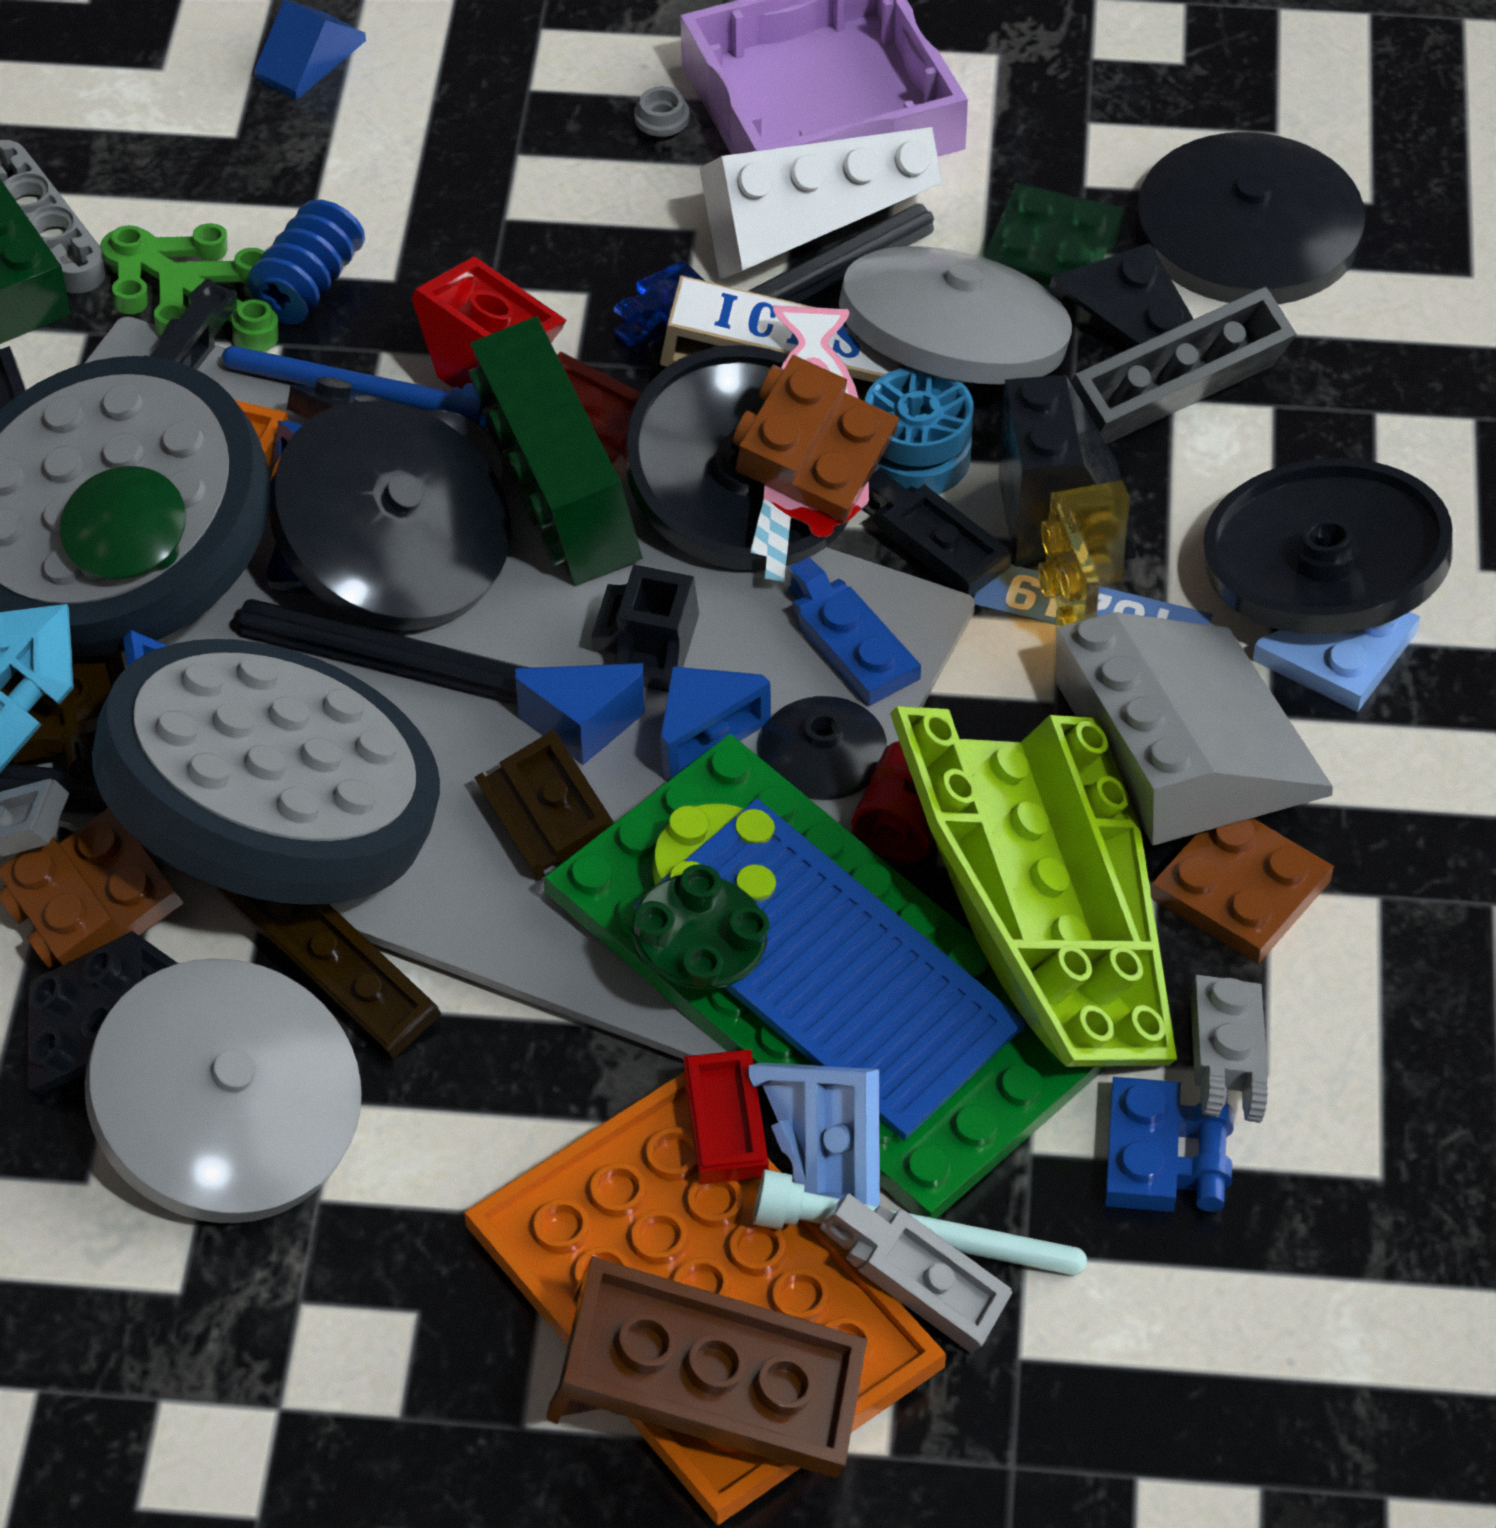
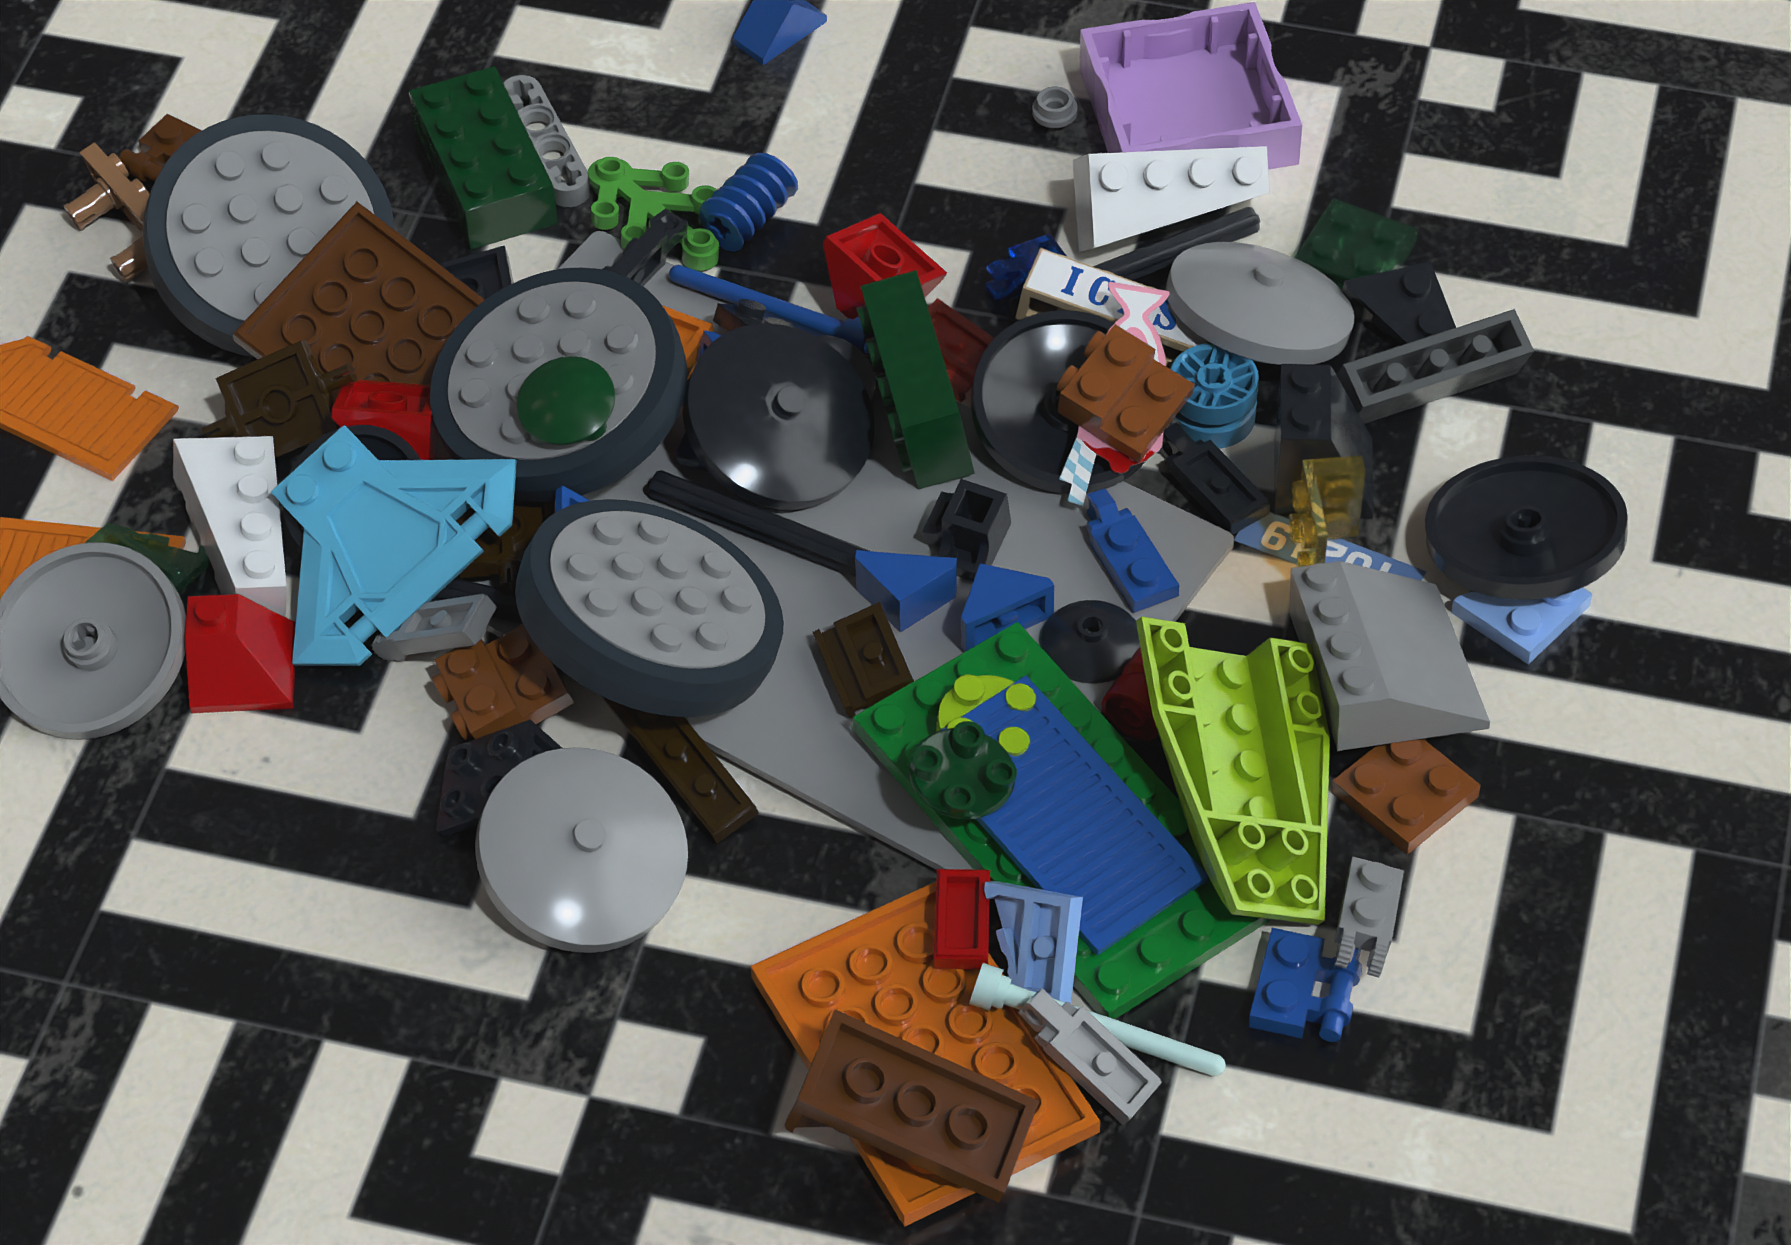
camera: 10 degrees right, 0 degrees up
(1251, 216) = (1522, 247): black dish -> none

